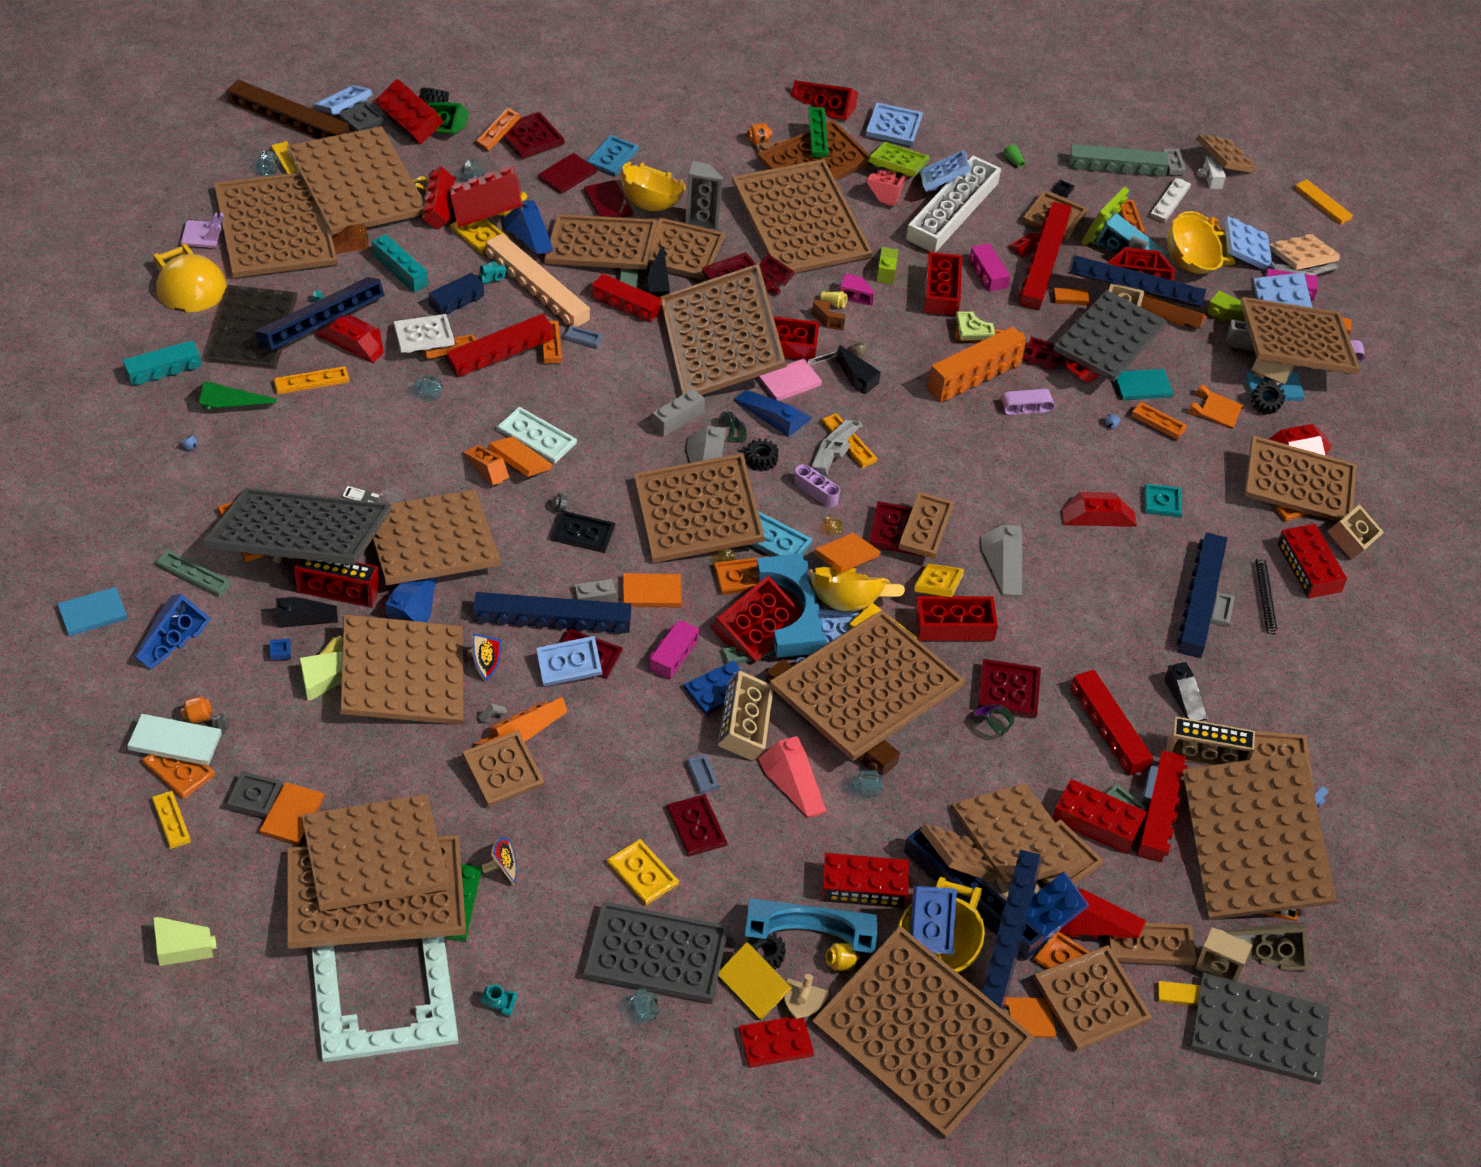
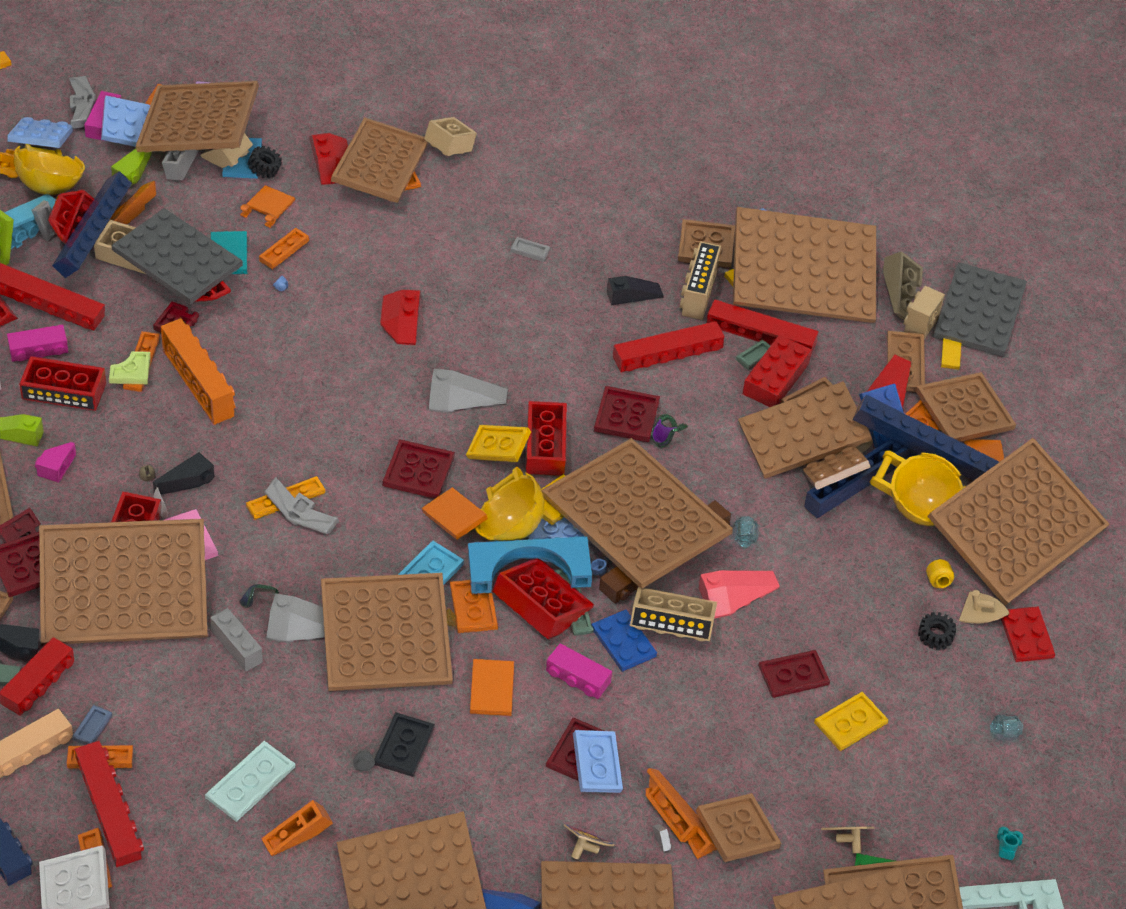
camera: 85 degrees left, 0 degrees up
(429, 387) = (166, 883): clear light blue head -> none
(520, 456) = (291, 794): orange tile -> none
(552, 612) = (526, 777): dark blue brick -> none
(595, 590) = (491, 738): light grey plate -> none
(656, 952) = (944, 715): dark grey plate -> none
(702, 774) = (732, 663): sand blue tile -> none
(754, 980) = (973, 639): yellow tile -> none
(761, 447) = (304, 563): black tyre -> none
(776, 413) = (238, 554): blue wedge -> none
(817, 485) = (355, 529): lavender beam -> none
(829, 319) = (91, 494): dark orange slope -> none
(833, 526) = (409, 523): clear yellow rock -> none
(837, 299) = (65, 483): light yellow cone -> none
(853, 927) = (911, 558): dark azure arch -> none
(865, 880) = (857, 547): red brick -> none
(926, 525) = (425, 442): medium nougat plate -> none
(934, 917) = (914, 490): blue plate -> none
(1027, 401) = (247, 343): lavender beam -> none
(1071, 296) = (90, 284): orange tile -> none
(1149, 786) = (742, 333): sand blue tile -> none
(1163, 500) = (389, 266): teal tile -> none
(1203, 595) = (516, 256): dark blue brick -> none
(1266, 584) = (551, 219): black piece -> none
(1304, 252) = (57, 95): light nougat plate -> none
(1311, 561) = (479, 174): red brick -> none

